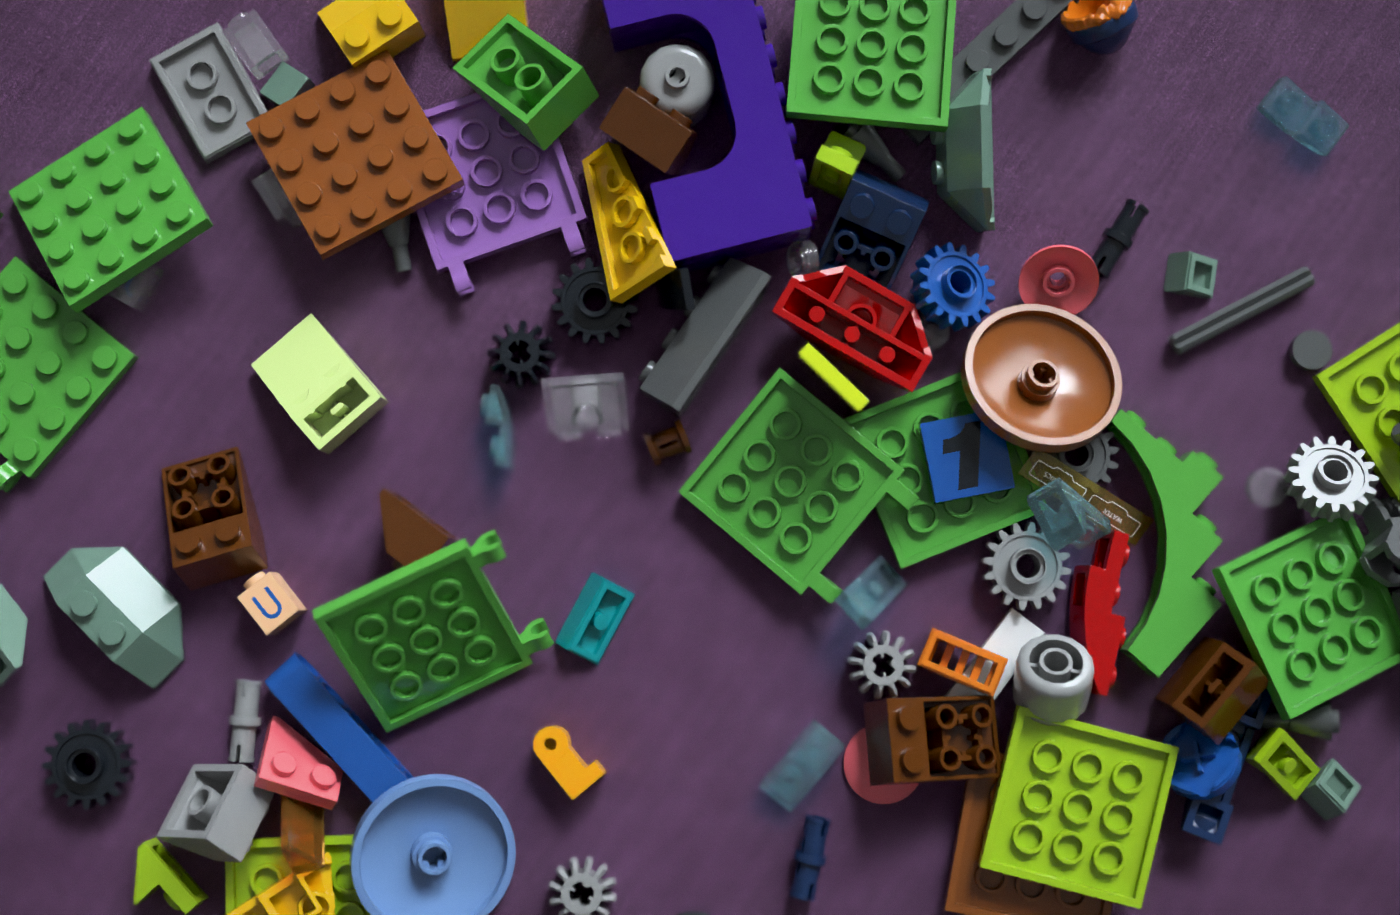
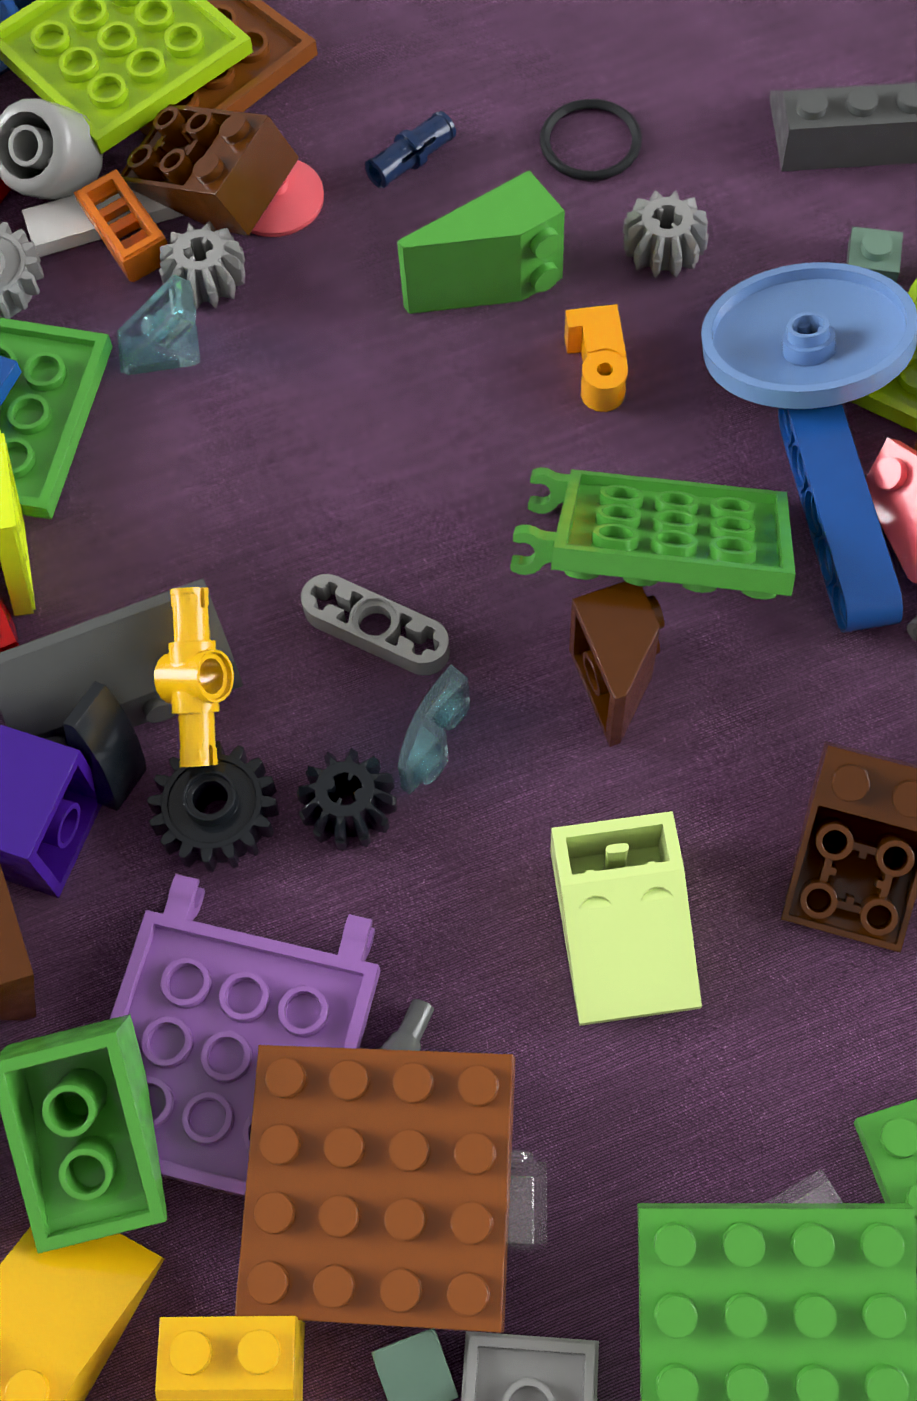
camera: 145 degrees left, 20 degrees down
(271, 602) = (843, 697): light nougat brick -> none
(556, 491) = (417, 626): none -> light grey beam
(586, 405) = (308, 688): clear slope -> none
(594, 618) = (471, 482): teal slope -> none
(625, 229) = (106, 847): yellow wing -> none
(644, 352) = (194, 676): none -> yellow pin
(673, 433) = (252, 600): reddish brown bush -> none
(677, 796) = (485, 250): none -> bright green slope
(793, 483) = (147, 474): bright green plate -> none
(802, 765) = (344, 223): clear light blue slope -> none

